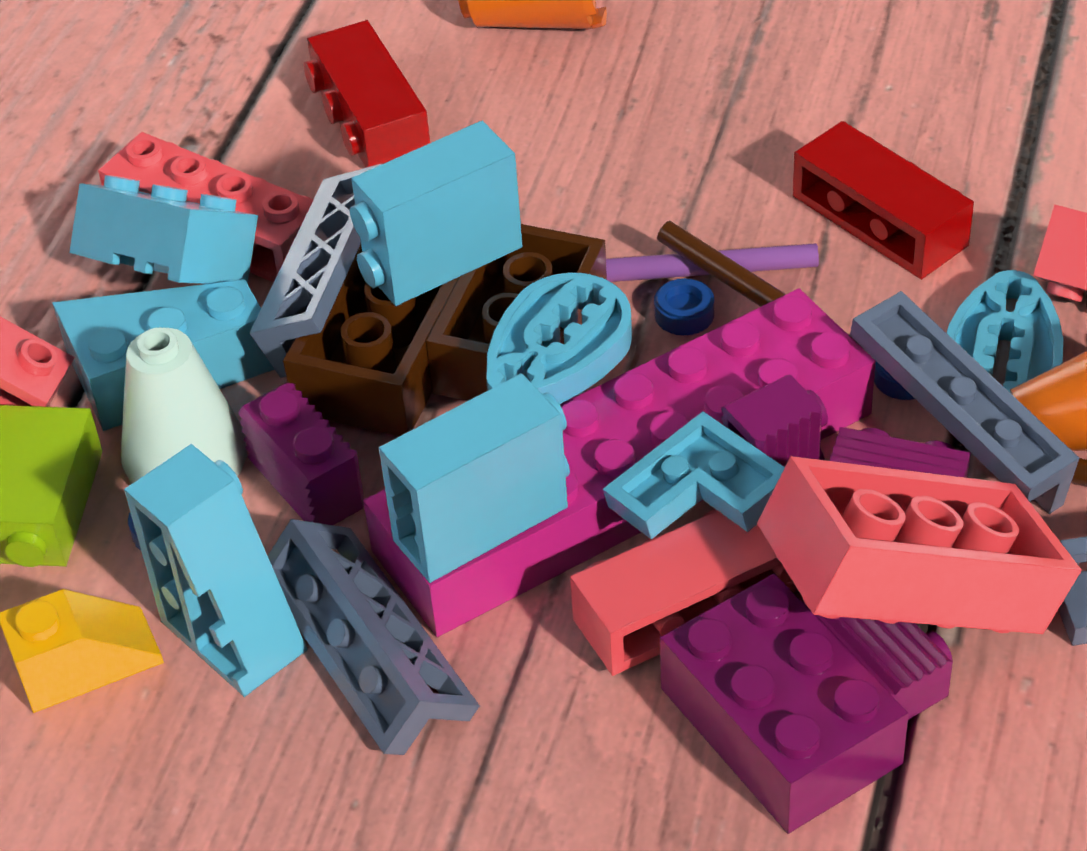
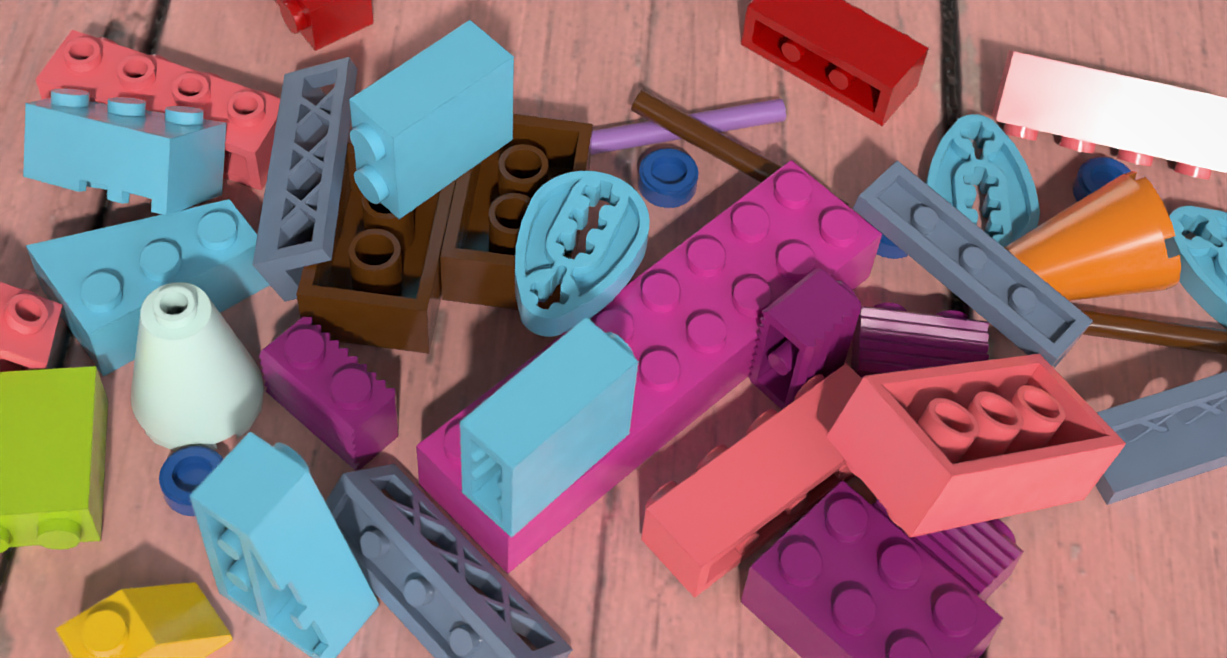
camera: 20 degrees left, 10 degrees up
(692, 466) = (750, 373): medium azure plate -> none

